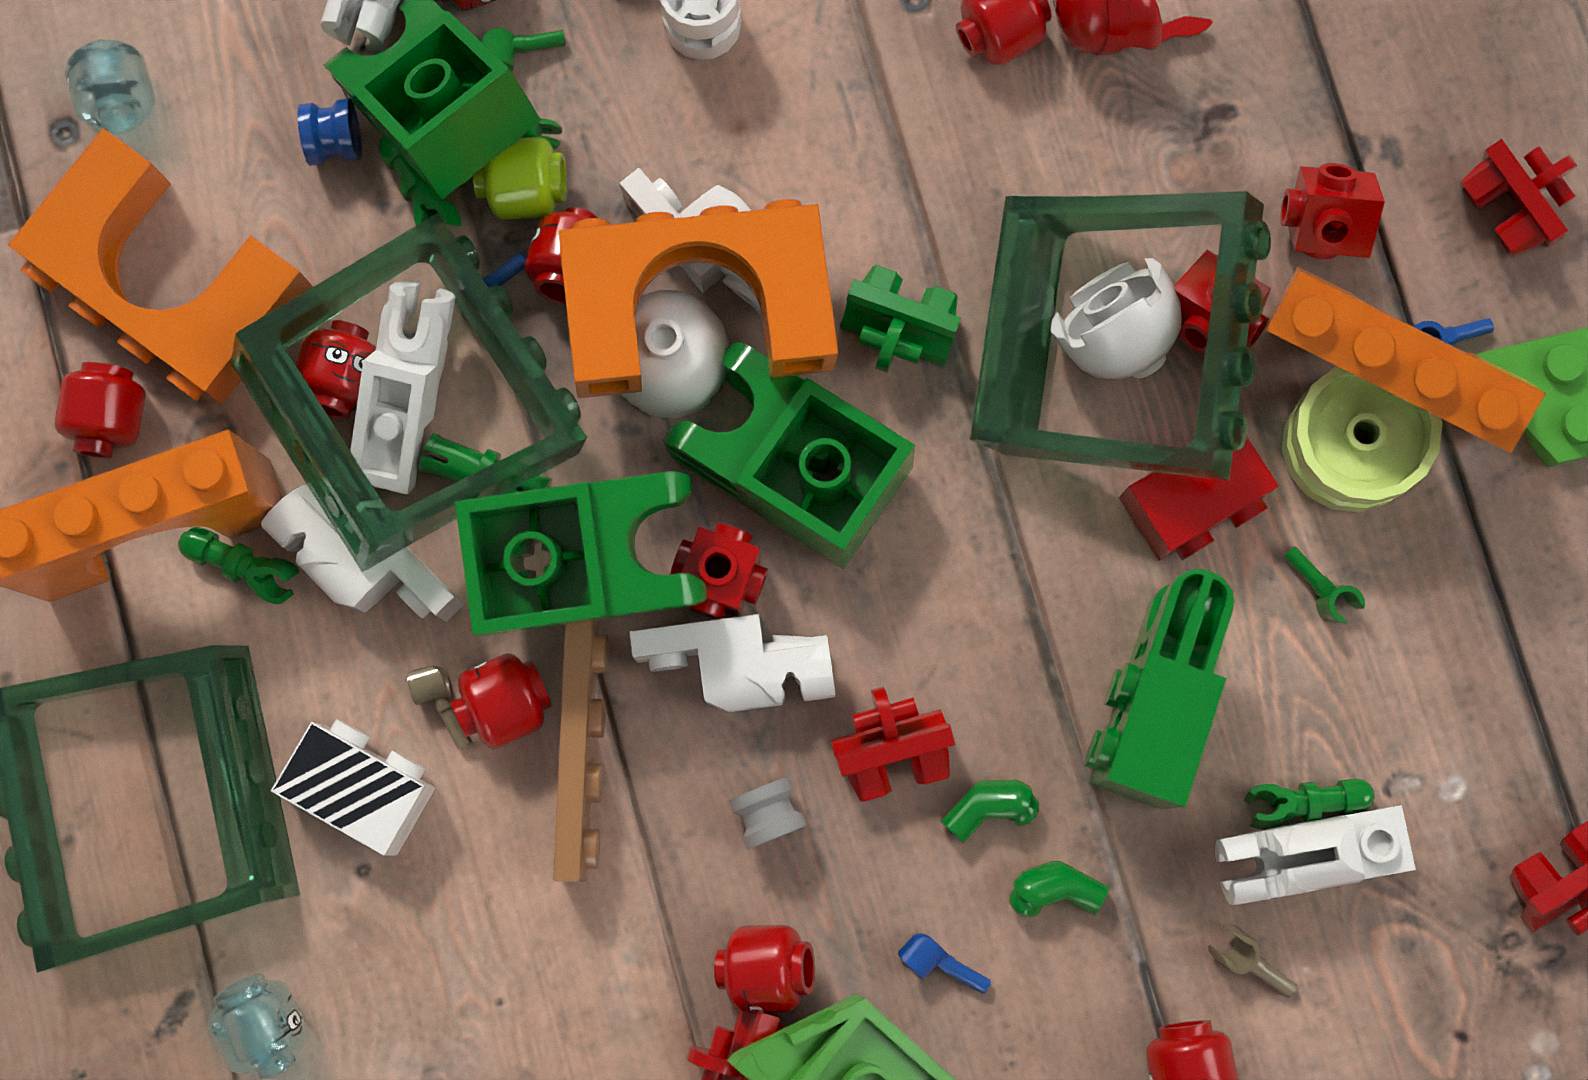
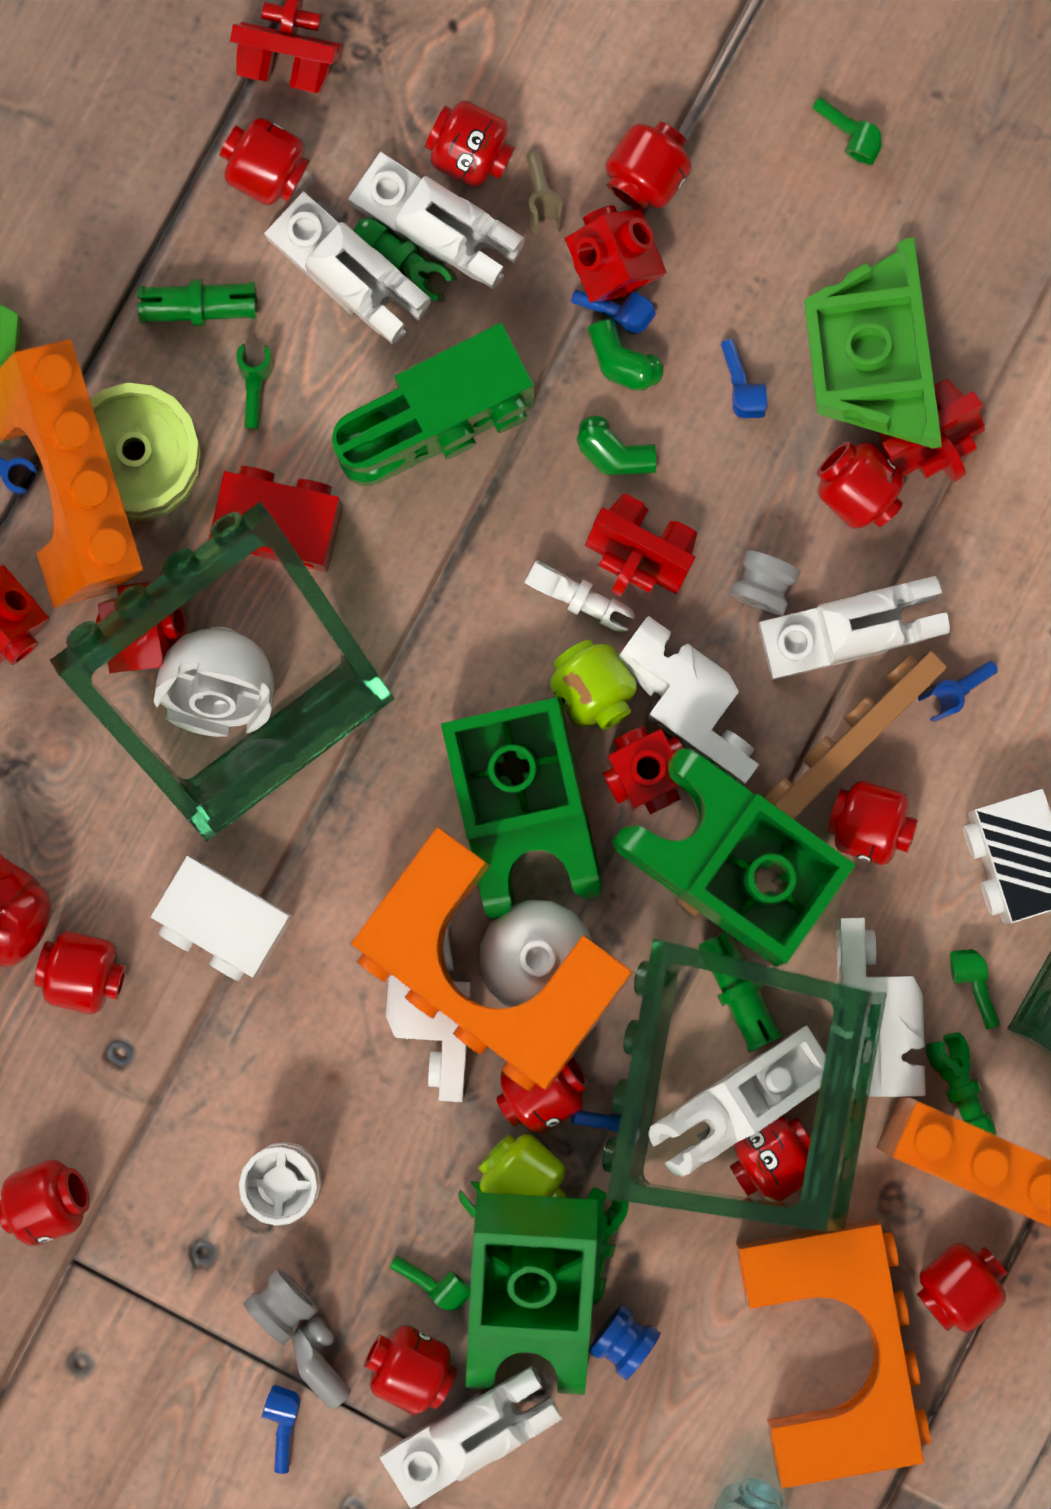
camera: 135 degrees left, 5 degrees up
(319, 663) = (969, 967): none -> green hand
(434, 685) = (907, 881): dark tan hand -> none
(532, 870) = (952, 693): none -> blue hand
(662, 842) = (850, 629): none -> white plate
(826, 599) = (593, 685): none -> lime head
(900, 324) = (366, 823): green hips -> none
(929, 655) = (578, 596): none -> white piece
(937, 155) = (221, 919): none -> white brick
(1083, 935) = (632, 316): none -> blue hand
(1147, 967) = (614, 253): none -> red brick
(1348, 746) = (346, 267): none -> white plate
(1353, 945) = (469, 144): none -> red head
(1431, 607) = (197, 302): none -> green pin
(1498, 769) = (264, 161): none -> red head

